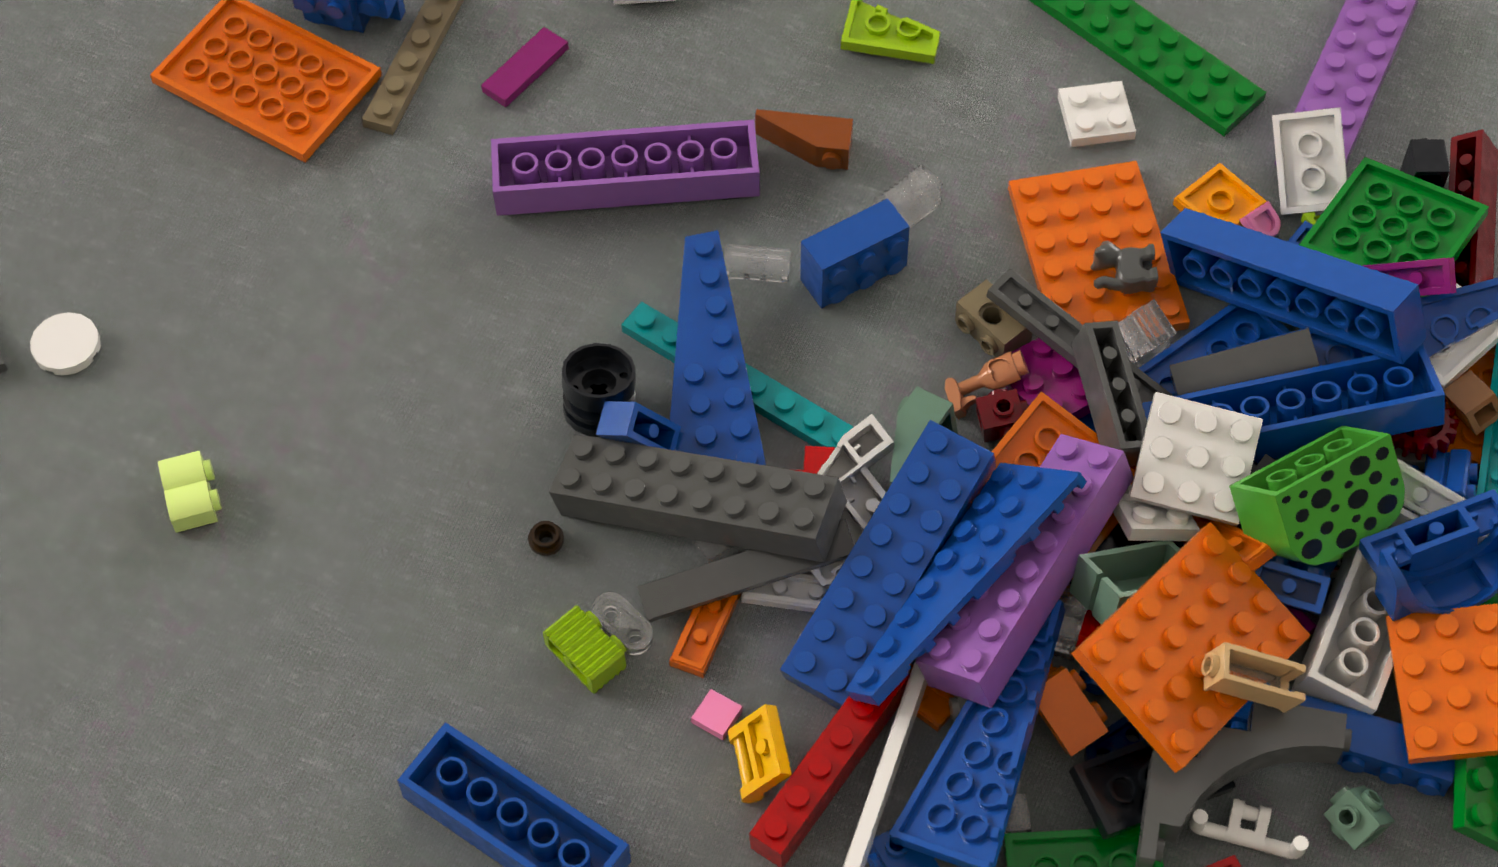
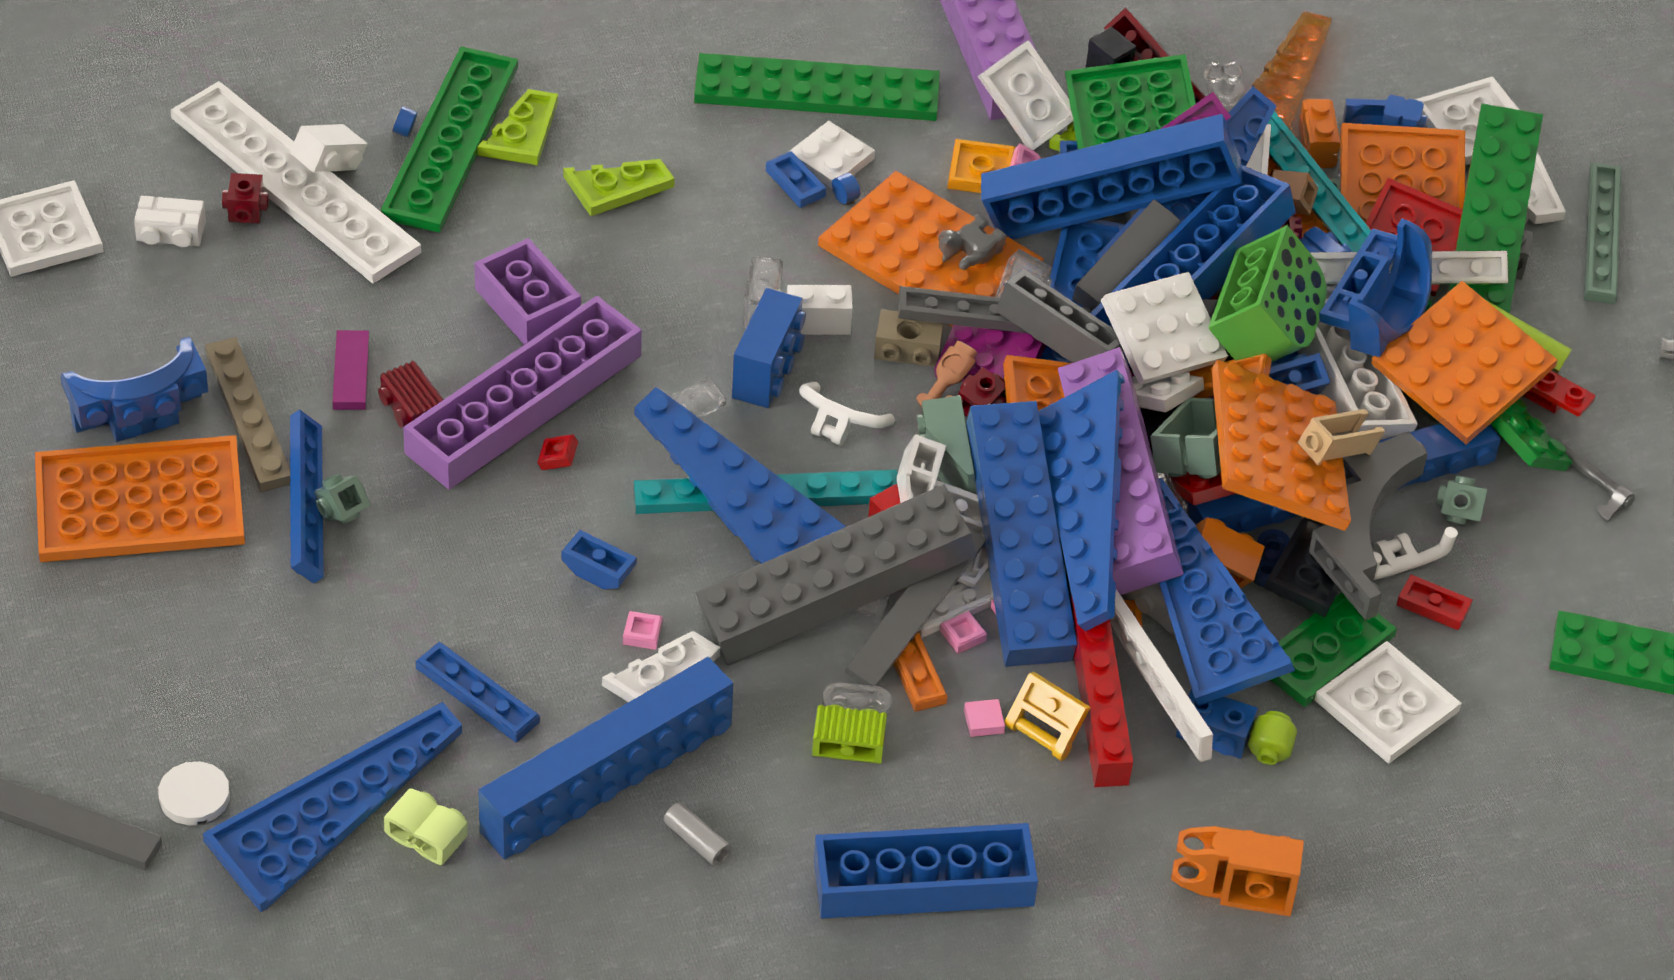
camera: 45 degrees left, 10 degrees down
(106, 423) = (297, 827): none -> blue wing
(346, 403) = (477, 691): none -> blue tile
(364, 530) = (605, 758): none -> blue brick
(380, 152) = (306, 478): none -> blue plate
(380, 649) = (697, 834): none -> light grey piece
(391, 177) = (341, 498): none -> sand green brick
(489, 490) = (668, 662): none -> white wing
(522, 437) = (642, 630): none -> bright pink tile
(541, 111) = (407, 392): none -> dark red brick
(542, 530) = (743, 678): dark brown plate -> none
(544, 350) = (597, 561): none -> blue slope
(590, 378) = (678, 553): black wheel -> none
(607, 237) = (557, 452): none -> red tile
(637, 425) = (736, 554): blue brick -> none
(712, 78) = (525, 289): none -> medium lavender brick
(778, 622) = (963, 632): none -> bright pink tile
(814, 138) = (643, 289): dark orange slope -> none
(863, 359) = (845, 416): none -> white piece
(941, 246) = (826, 308): none -> white brick
(1040, 117) = (795, 179): none -> blue plate
(1075, 151) = (846, 188): none -> blue piece

